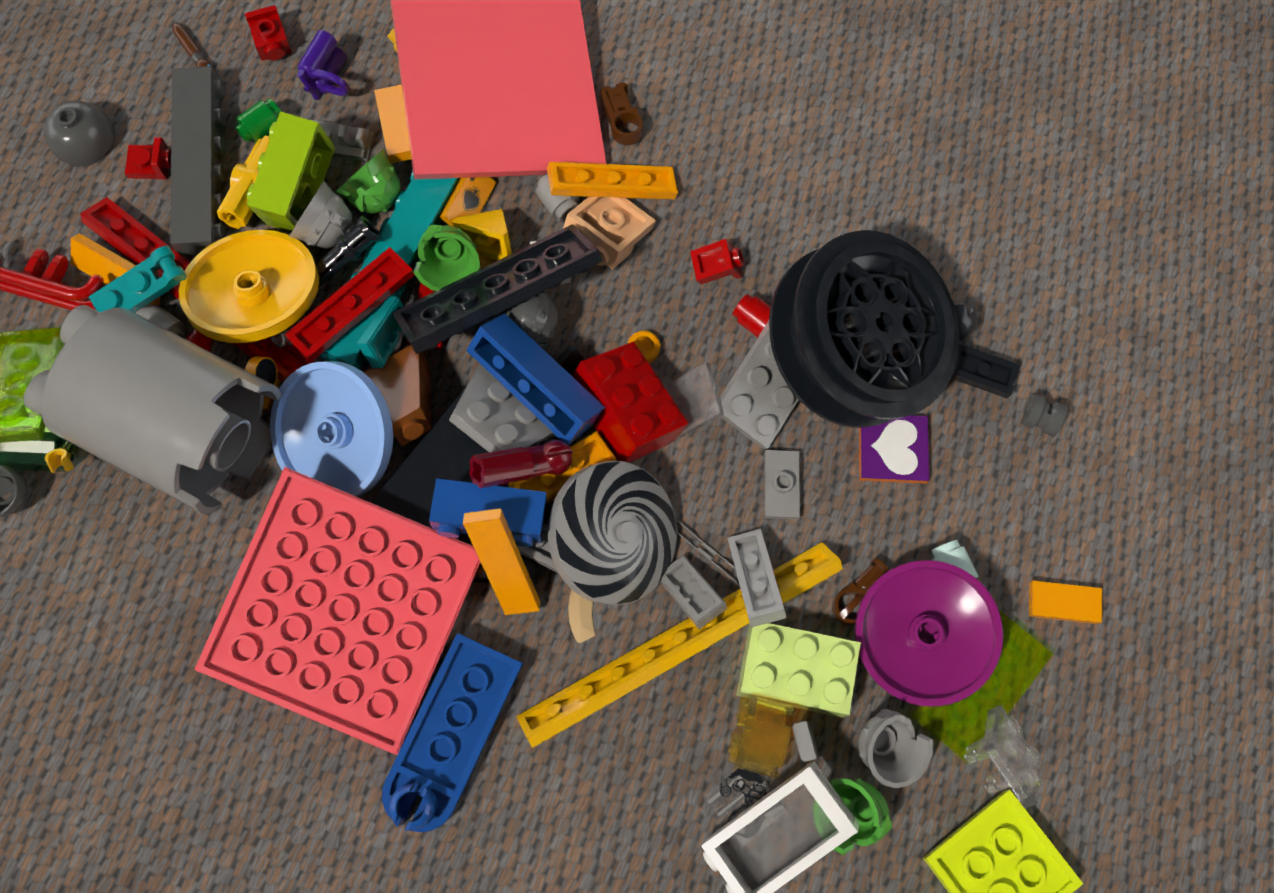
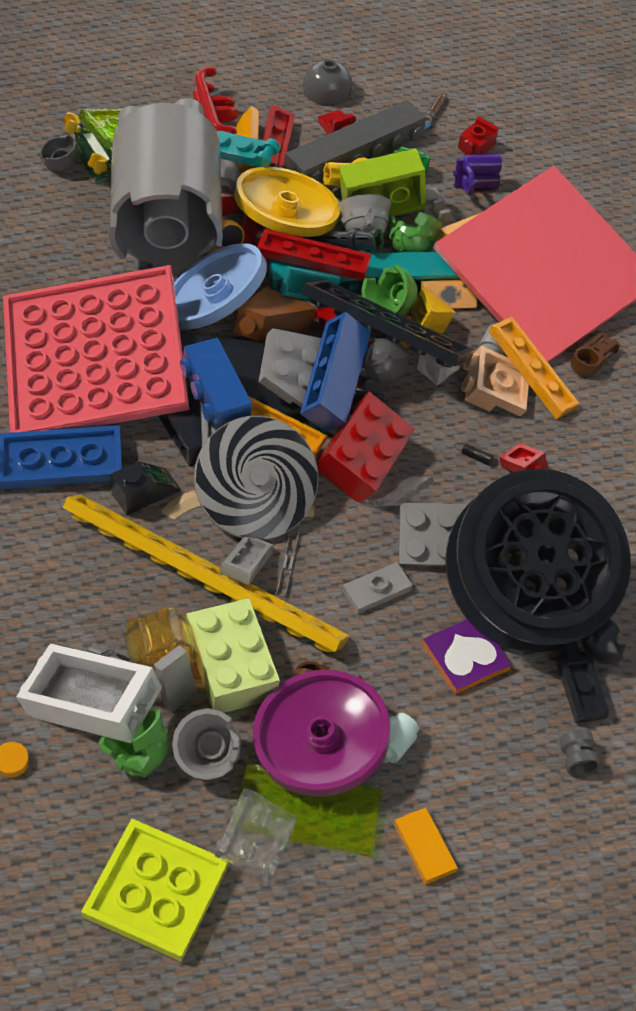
camera: 60 degrees right, 20 degrees down
(501, 561) = (184, 411): light orange tile -> none
(520, 463) = (264, 383): dark red piece -> none
(545, 646) = (141, 486): none -> black slope
(647, 343) = (420, 450): light orange tile -> none
(677, 297) = (476, 454): none -> black piece
(756, 578) = (284, 588): light grey plate -> none

